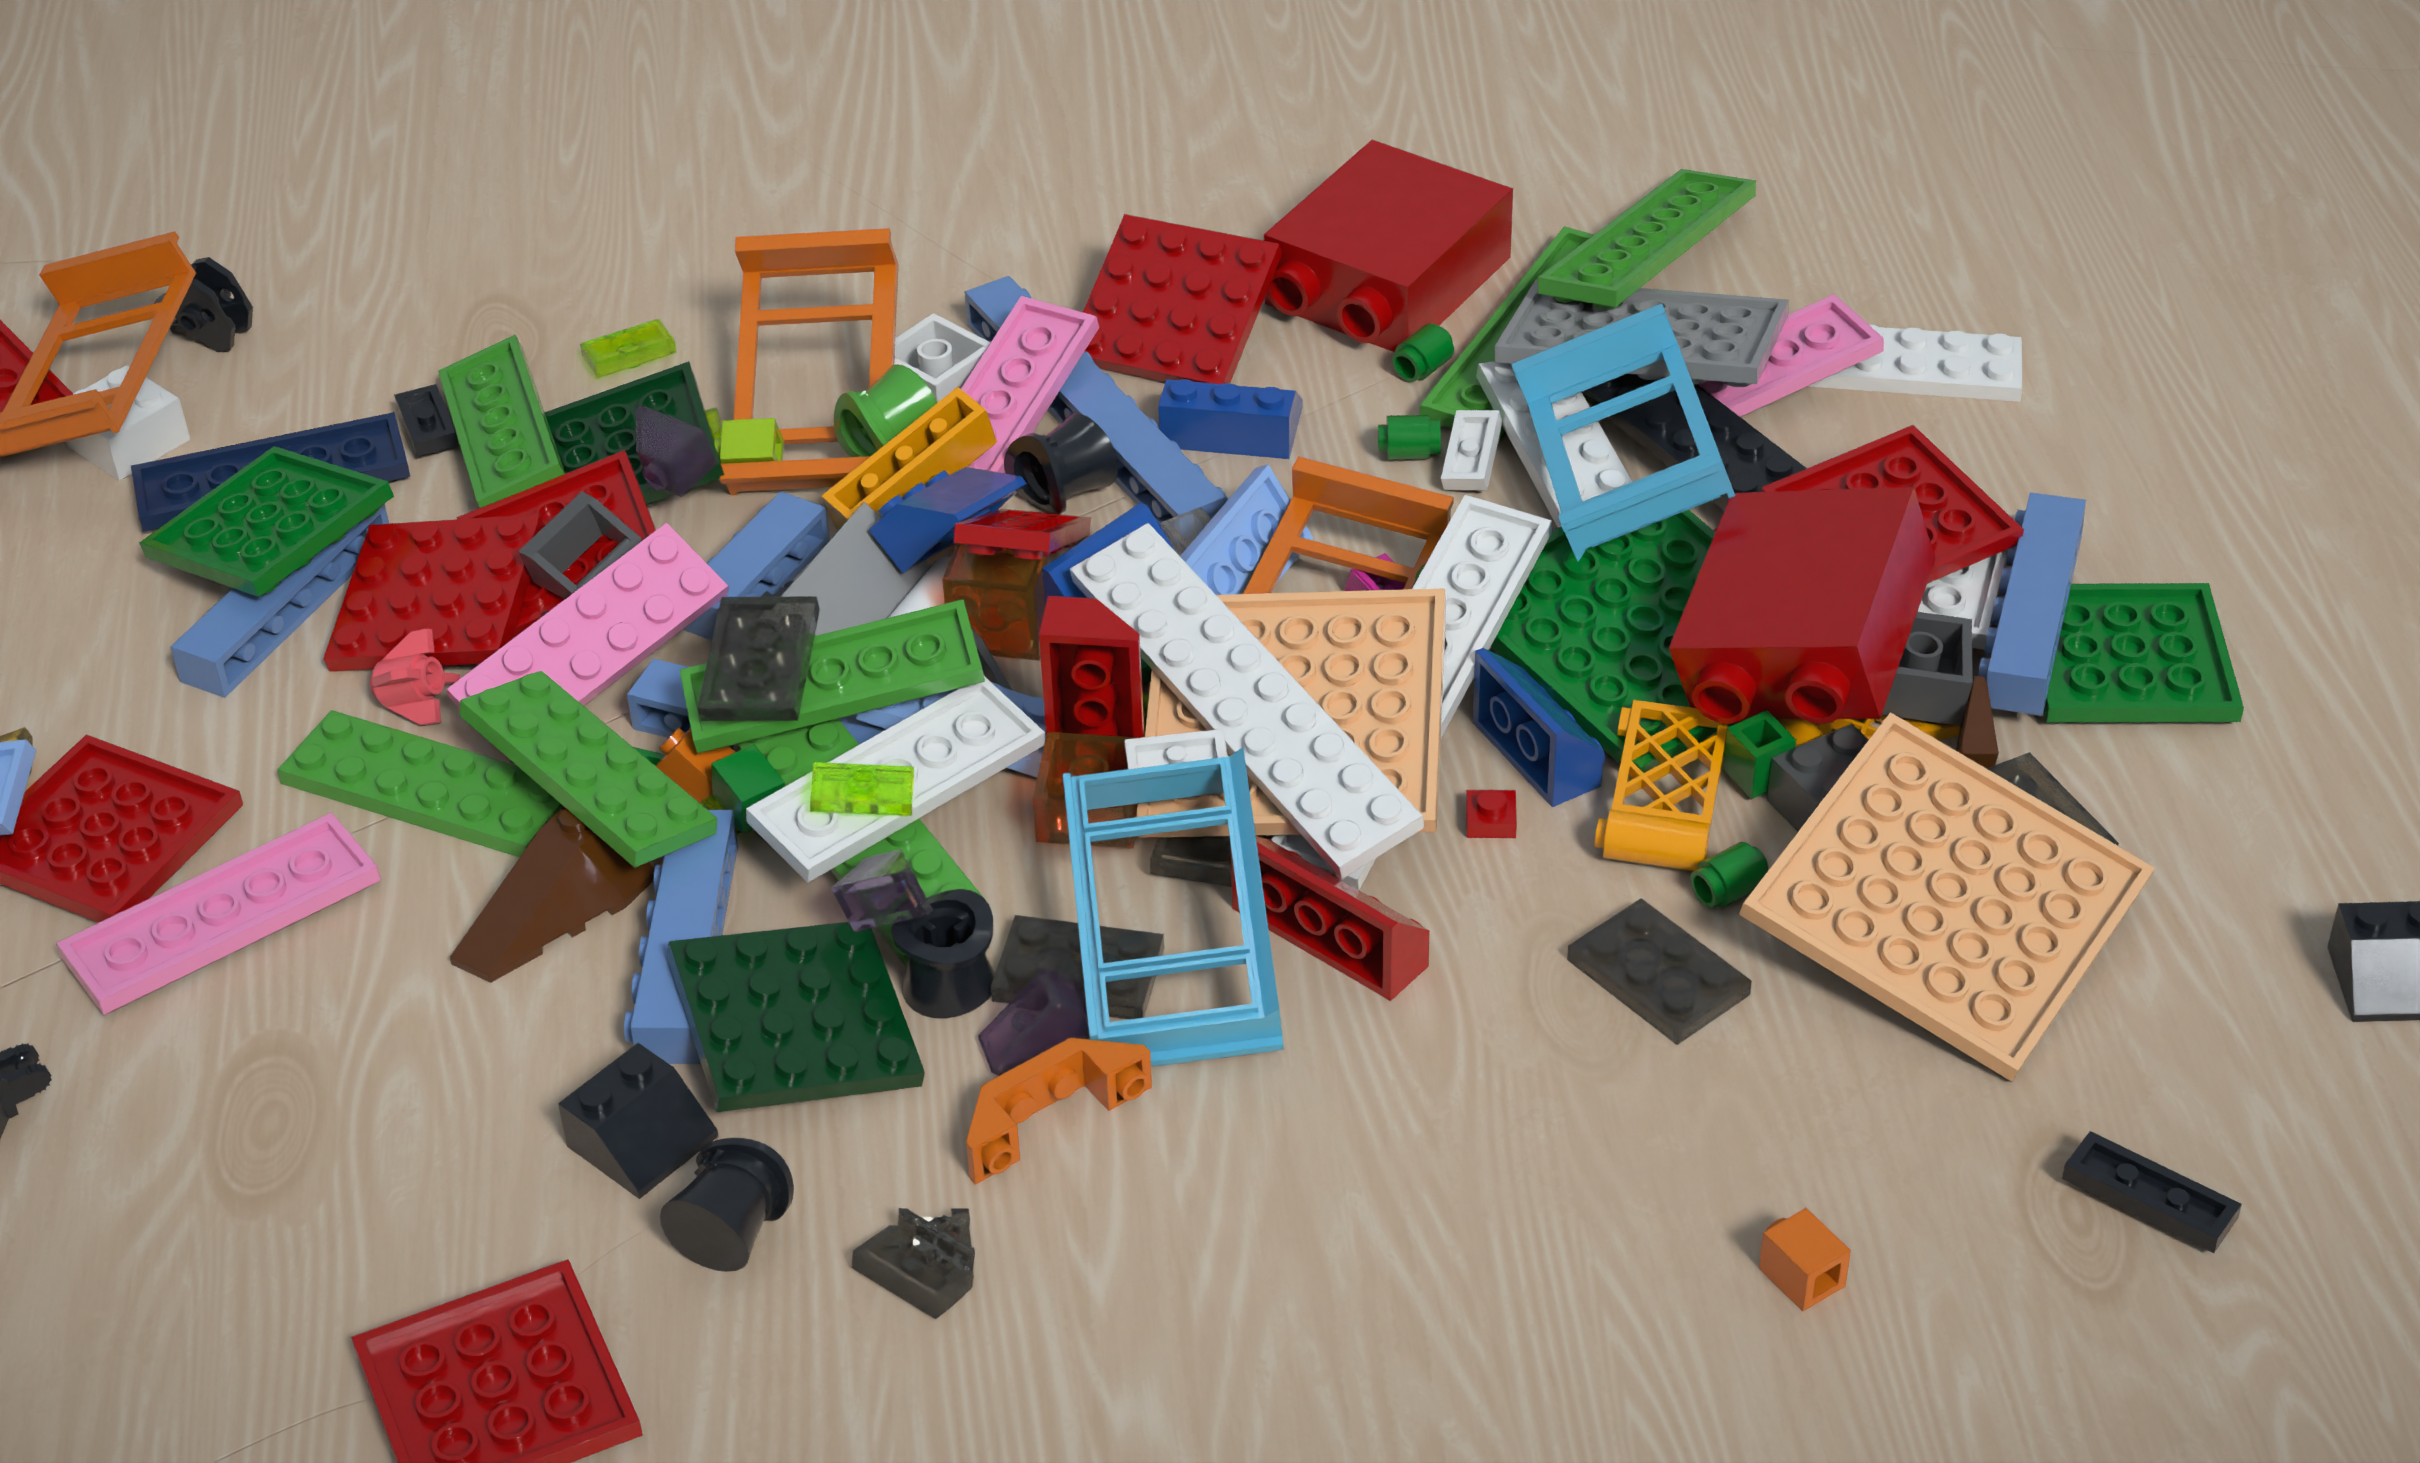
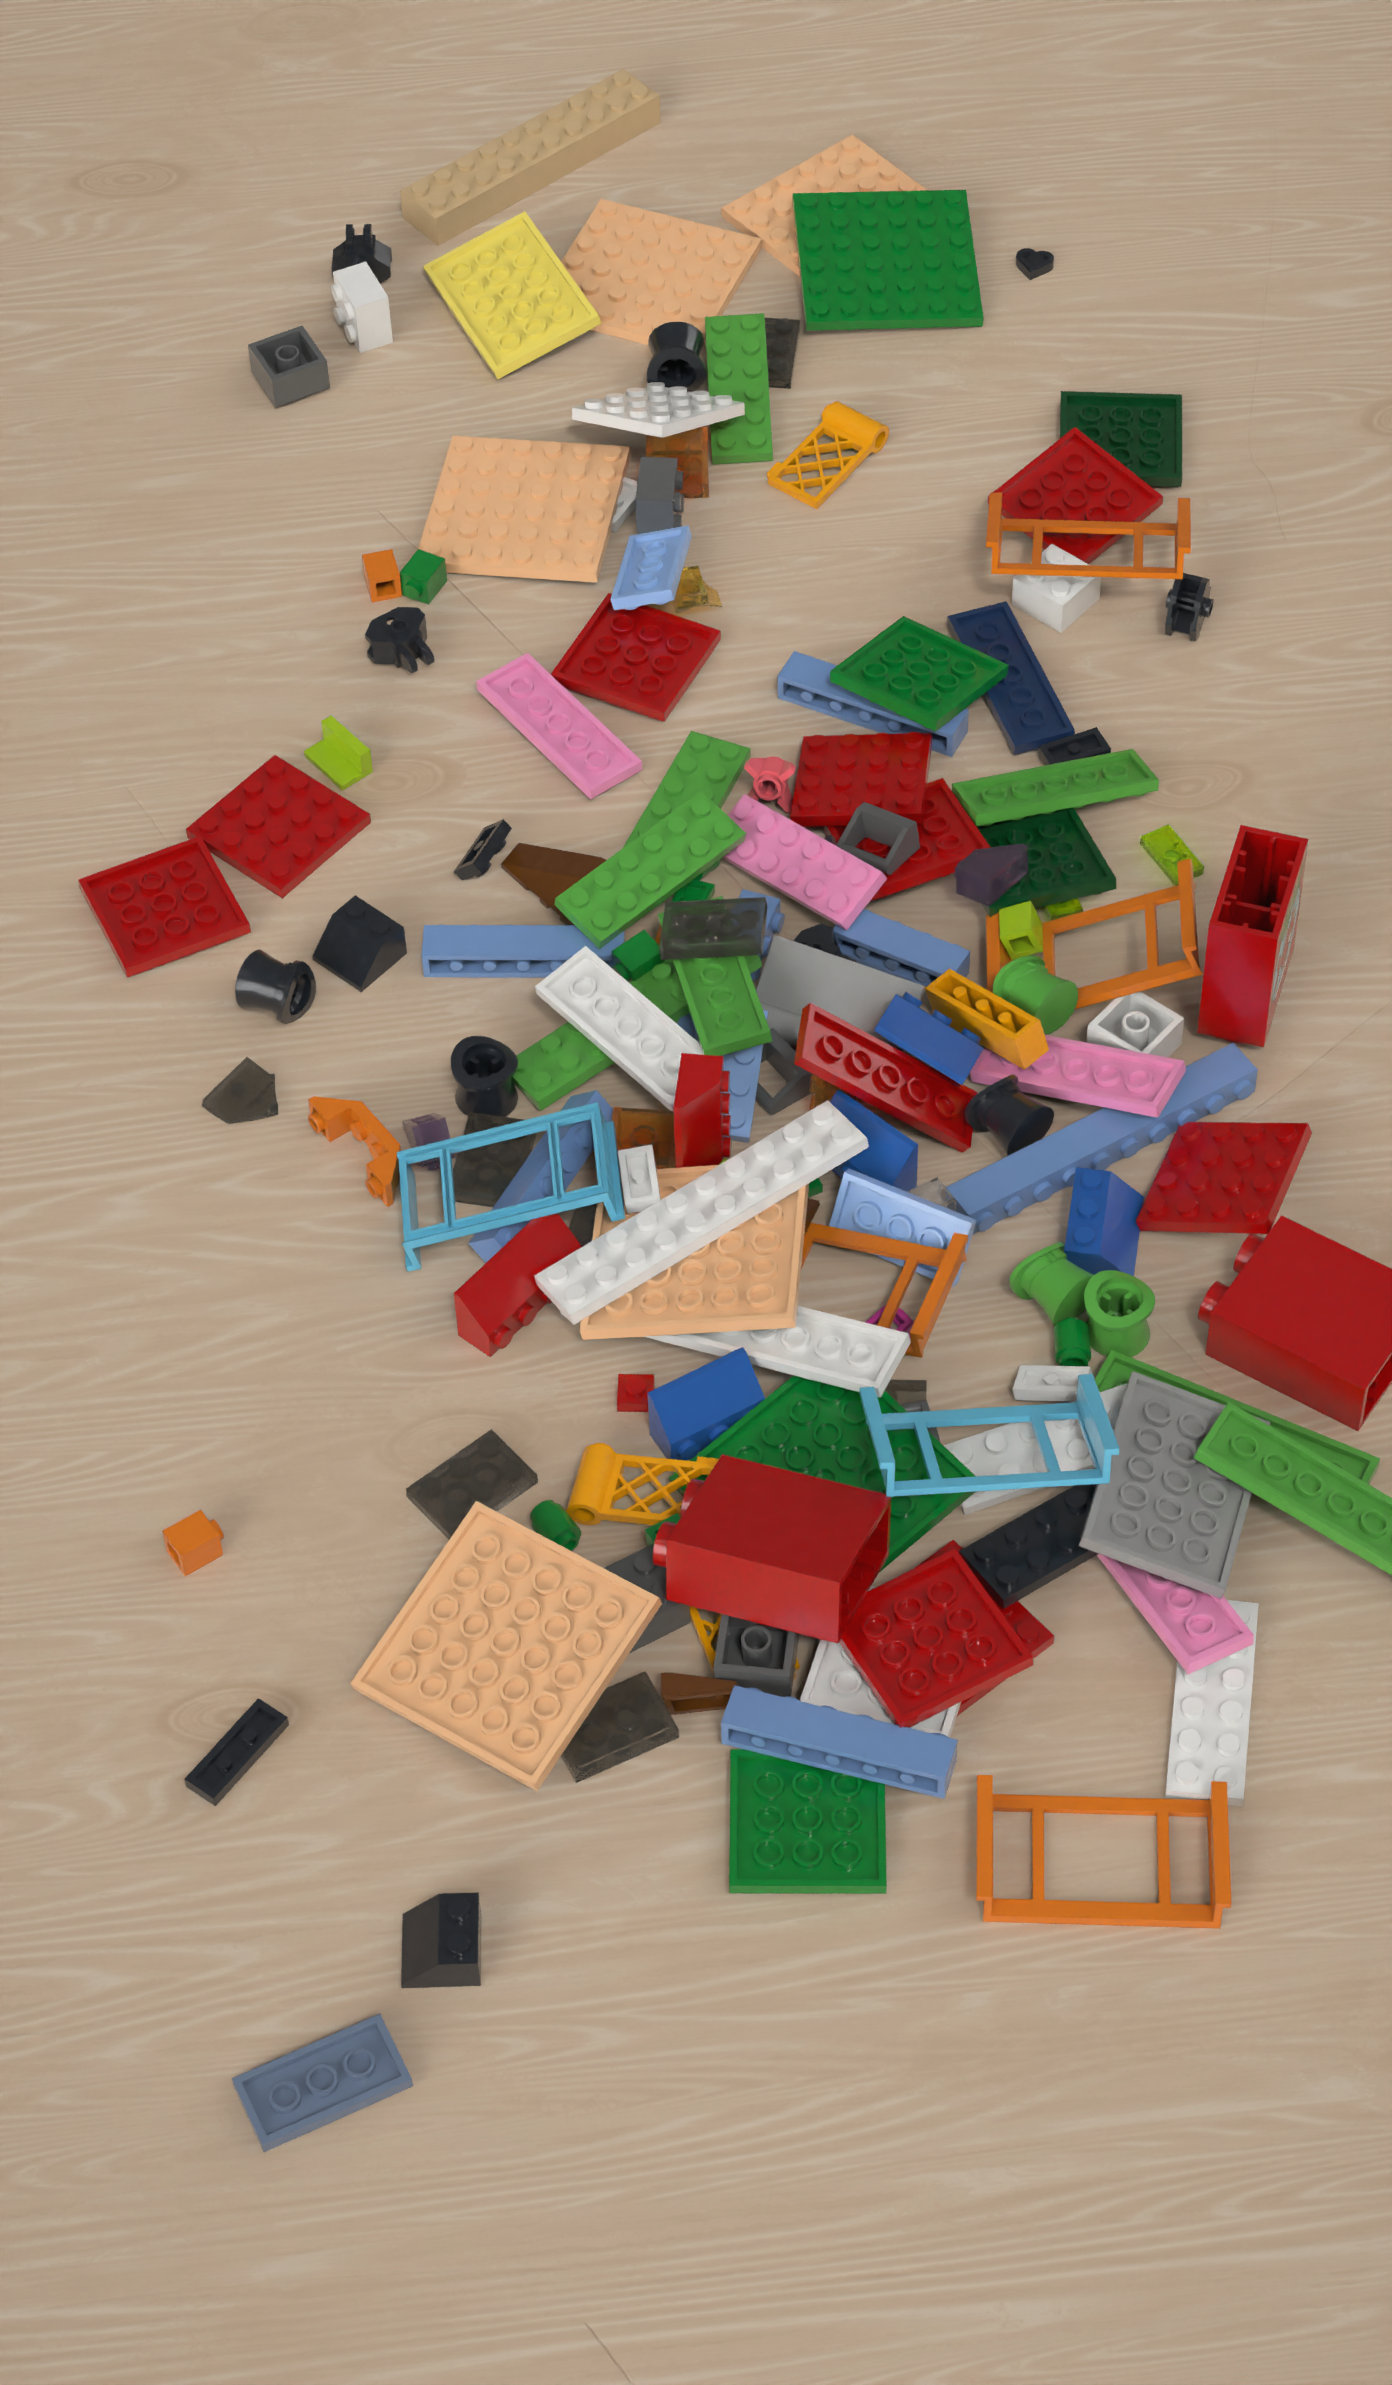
camera: 90 degrees right, 10 degrees up
(201, 1171) = (340, 755): none -> lime panel
(337, 1251) = (279, 826): none -> red plate
(466, 985) = (487, 844): none -> black plate
(793, 1015) = (432, 1001): dark green plate -> none
(861, 168) = (1252, 935): none -> red brick
(862, 789) = (600, 1003): clear neon green plate -> none
(881, 892) = (515, 1029): clear purple slope -> none
(1126, 886) = (535, 1177): none -> medium blue brick
(1334, 430) = (1051, 1282): none -> bright green hat
(1375, 385) = (1118, 1312): none -> bright green hat
(1423, 353) = (1189, 1355): green brick -> none
(2120, 350) = (1100, 1912): none -> orange piece

